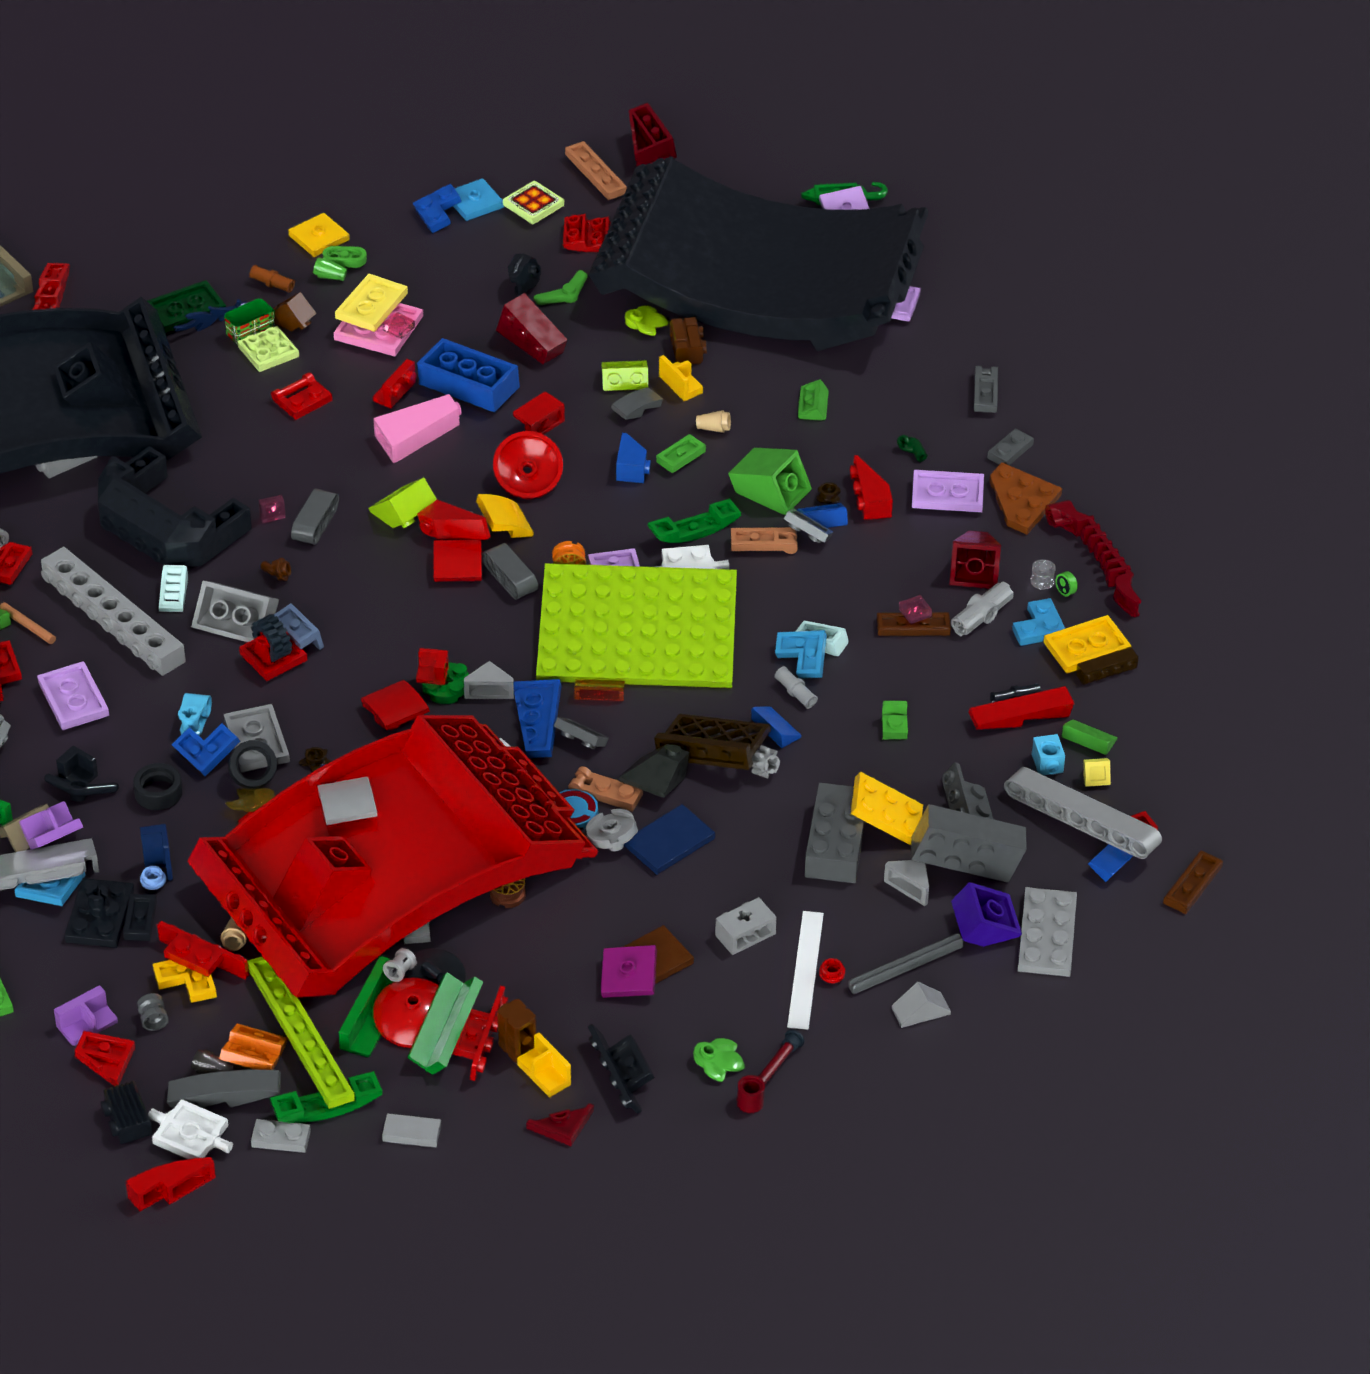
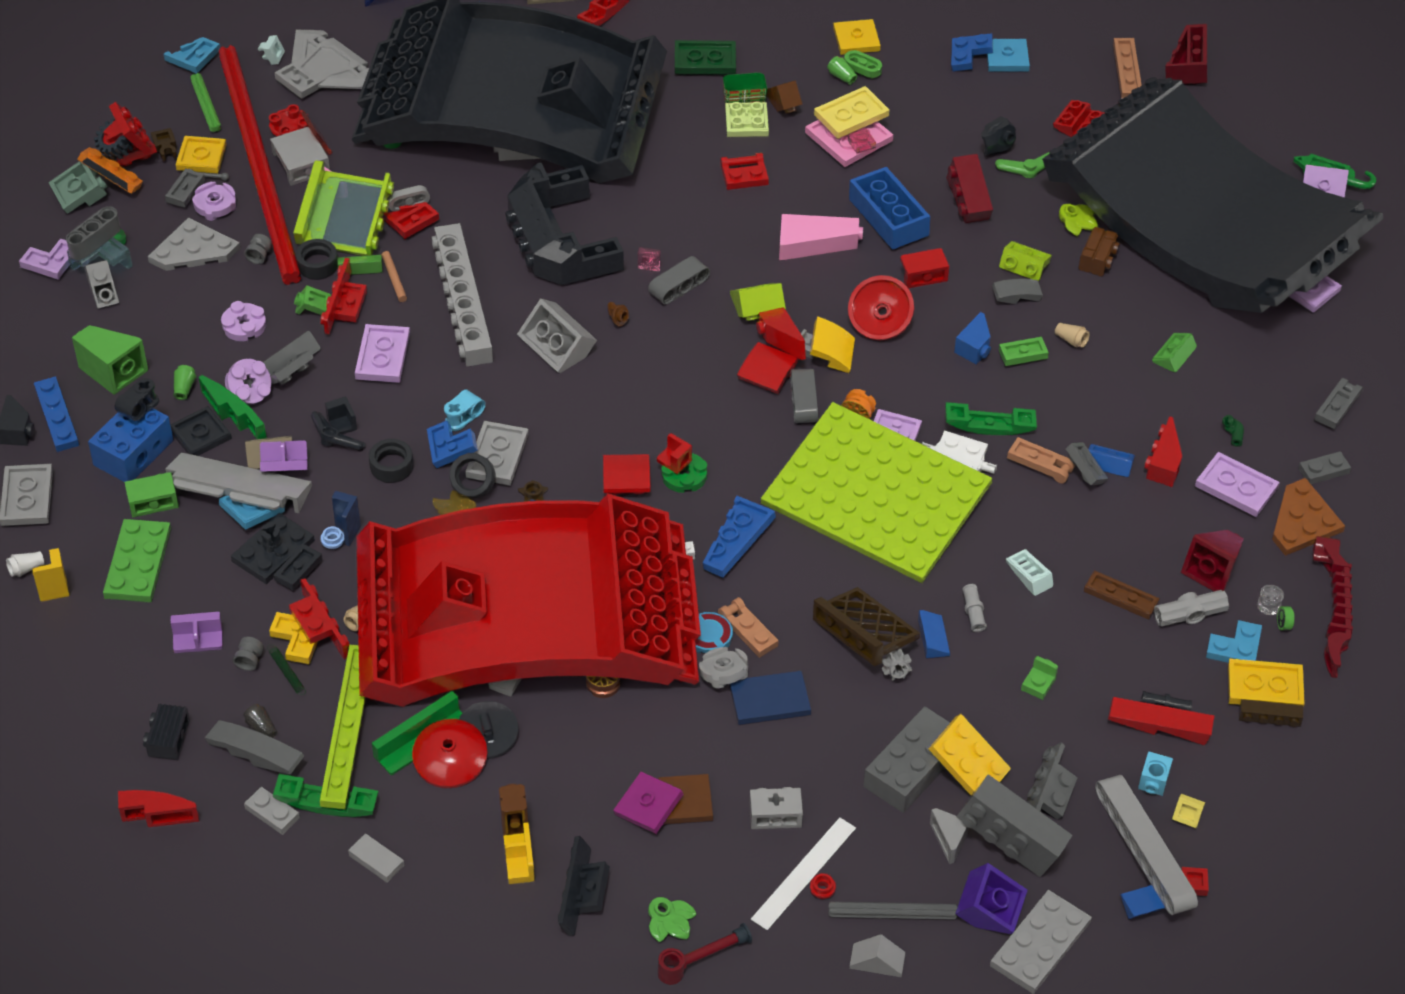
camera: 30 degrees right, 5 degrees up
(105, 1055) = (188, 673): red wing -> none
(174, 581) = (528, 283): light aqua slope -> none
(190, 1130) = (203, 771): white plate -> none
(197, 1010) = (285, 668): none -> dark green piece
(205, 319) = (713, 74): dark blue piece -> none
(253, 1048) = (301, 723): orange slope -> none
(272, 278) = (790, 60): dark orange pin -> none
(272, 649) = (562, 381): plate -> none
(299, 627) = (593, 371): sand blue panel -> none
(347, 800) = (507, 542): light grey slope -> none
(396, 385) = (824, 192): red bracket -> none
(401, 966) = (468, 703): light grey bush -> none
(444, 1022) = (462, 774): panel -> none
(477, 1033) = (483, 798): red bracket -> none
(489, 683) = (714, 487): light grey slope -> none
(533, 202) = (1054, 76): tile -> none
(562, 1125) = (501, 915): dark red tile -> none
(588, 736) = (761, 566): dark grey plate -> none
(599, 690) = (805, 534): clear red slope -> none
(658, 770) = (799, 632): pearl dark grey slope -> none
(679, 378) = (1070, 283): yellow panel -> none
(771, 478) = (1084, 407): bright green slope -> none
(808, 647) = (1007, 578): dark azure plate -> none
(828, 493) = (1128, 441): dark brown plate -> none
(915, 609) = (1126, 582): clear pink plate -> none
(1088, 736) = (1207, 772): bright green slope -> none
(1193, 882) = (1209, 958): reddish brown tile -> none

